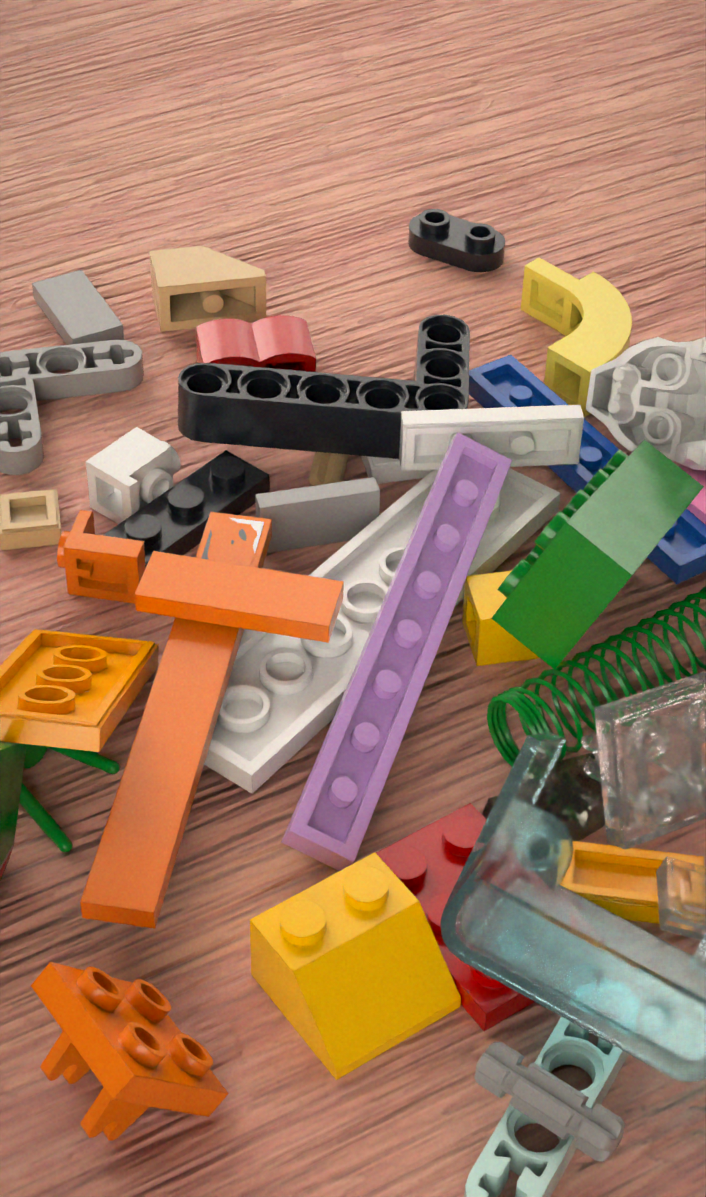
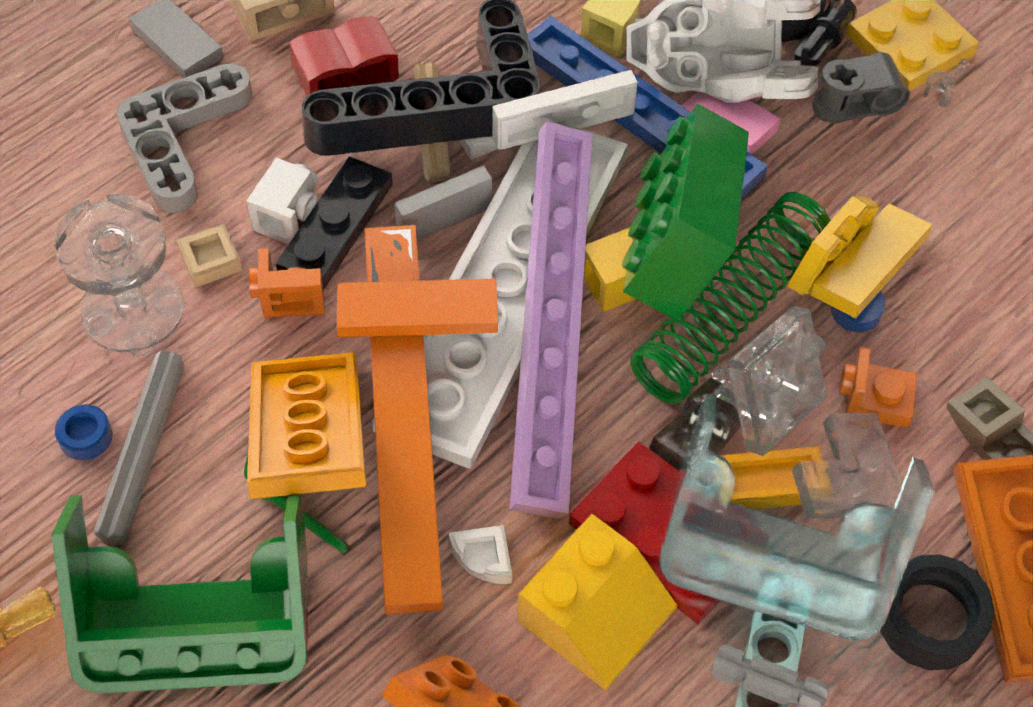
camera: 15 degrees left, 15 degrees up
(233, 886) = (483, 553): none -> white tile

